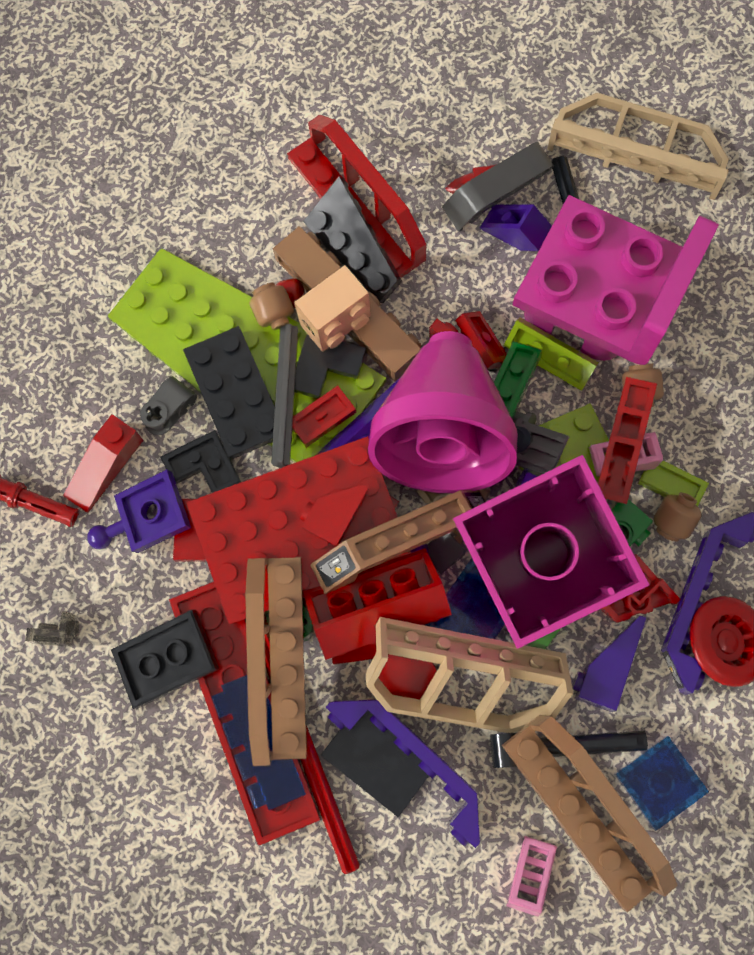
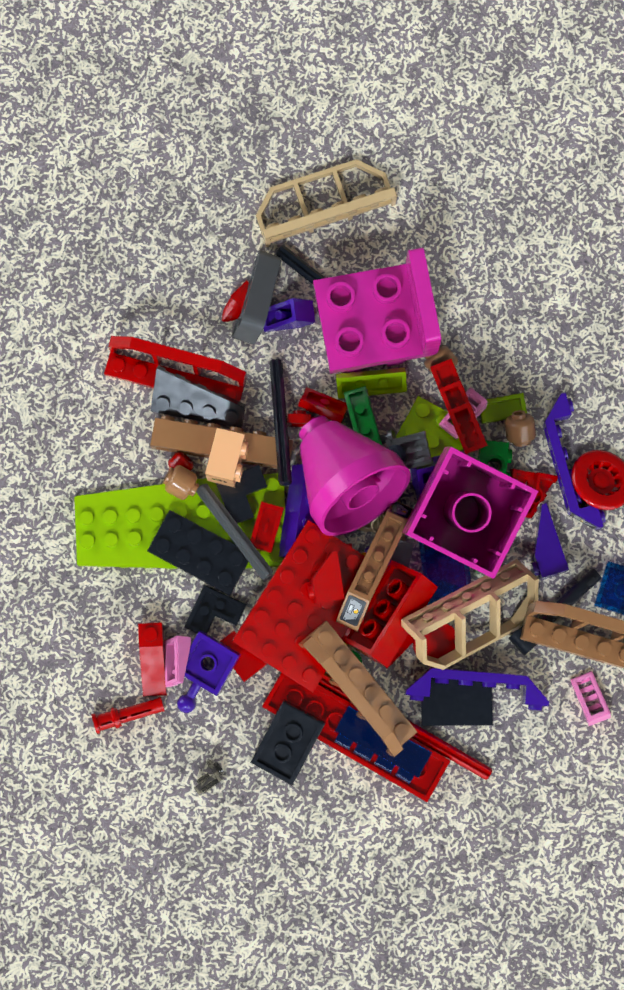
camera: 45 degrees left, 5 degrees up
(125, 477) = (176, 657): none -> bright pink slope
(169, 403) = (163, 588): dark grey piece -> none
(420, 323) = (280, 422): none -> black axle

